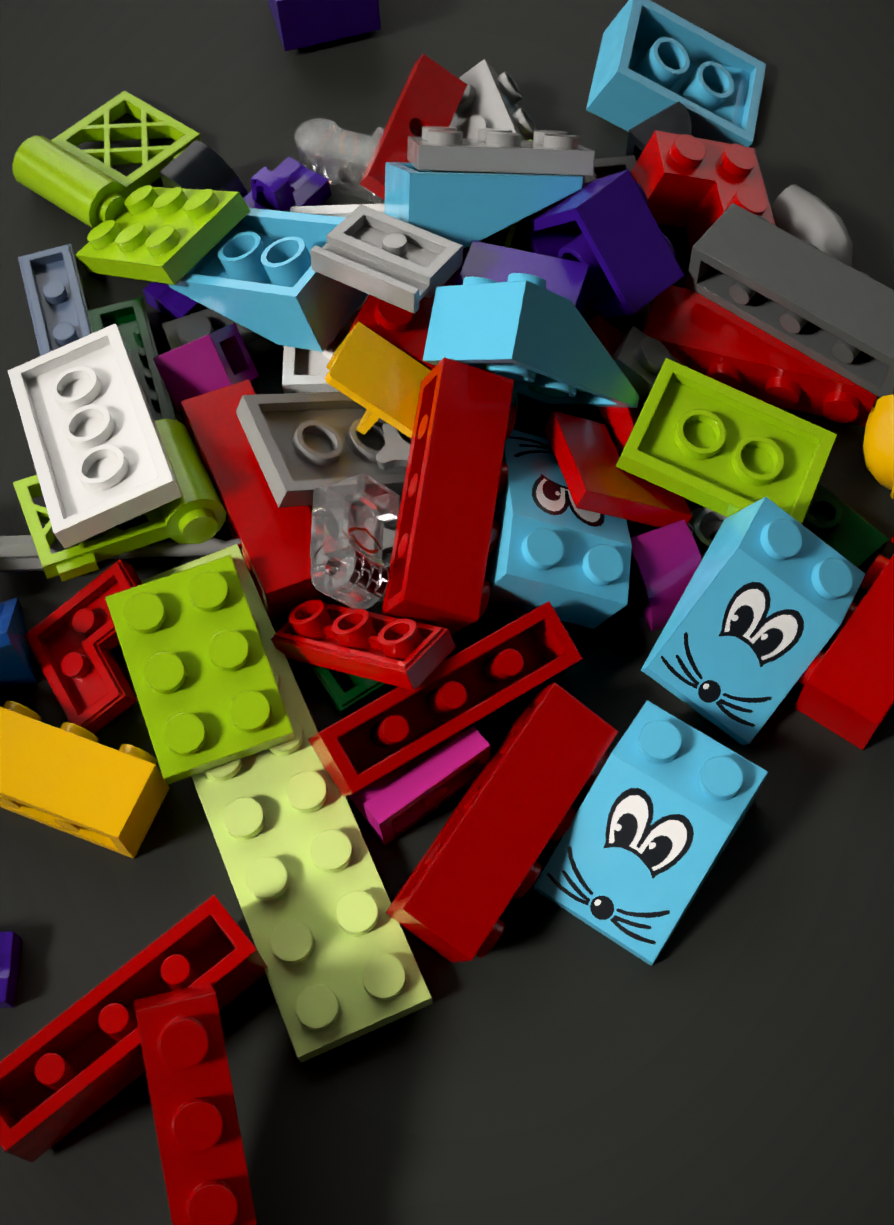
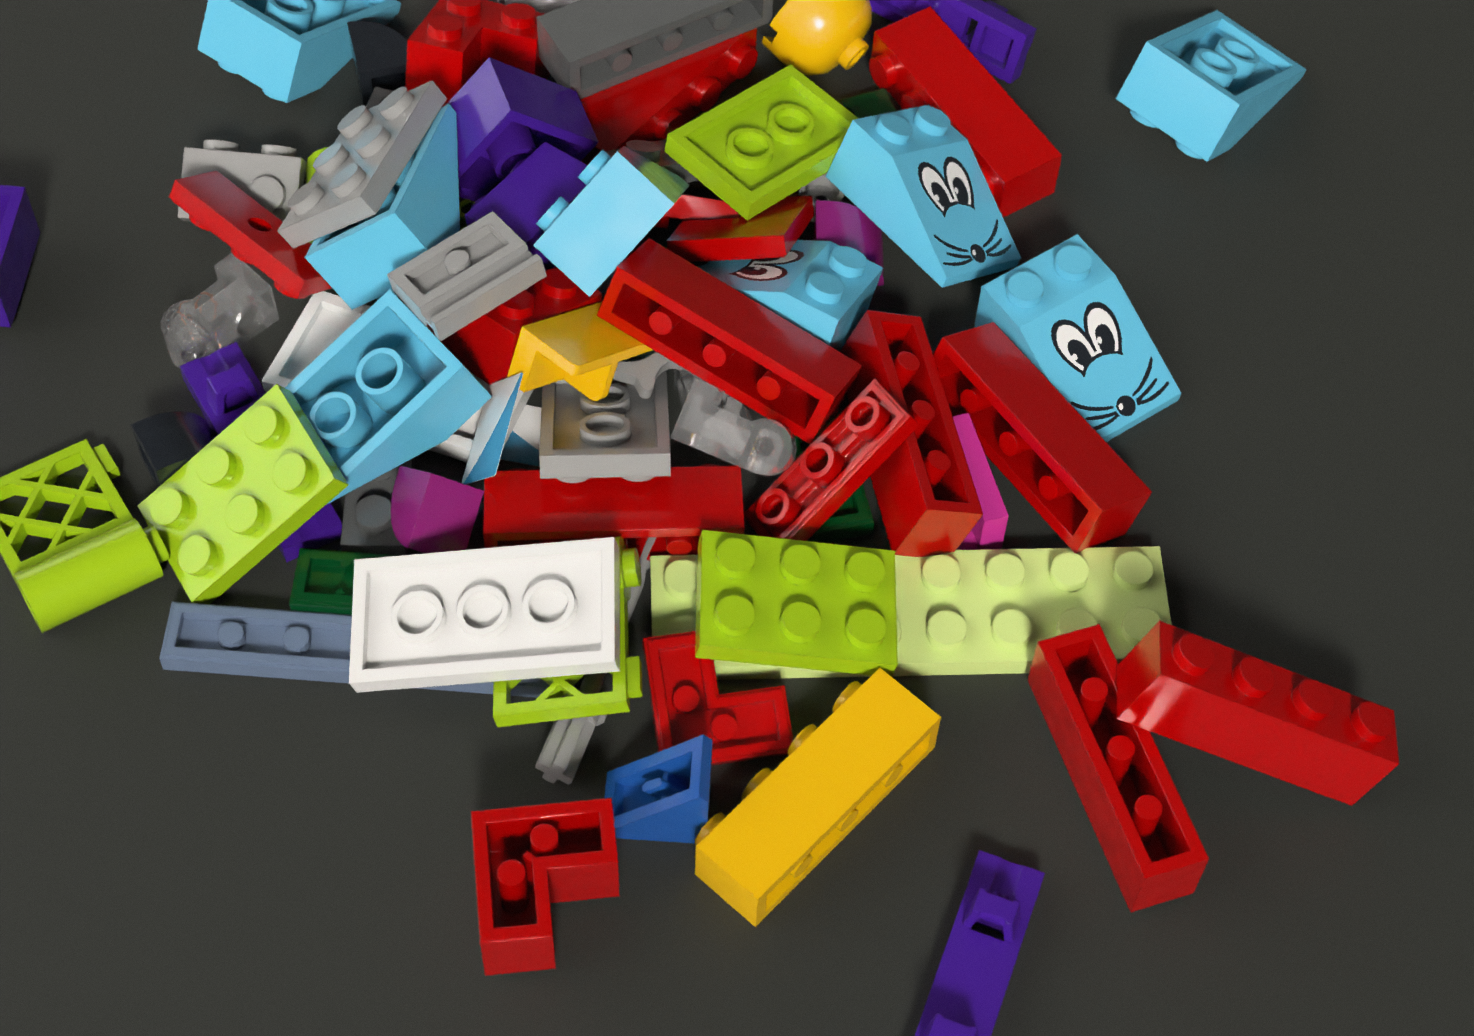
camera: 75 degrees left, 5 degrees down
(284, 365) = (492, 430): none -> sticker

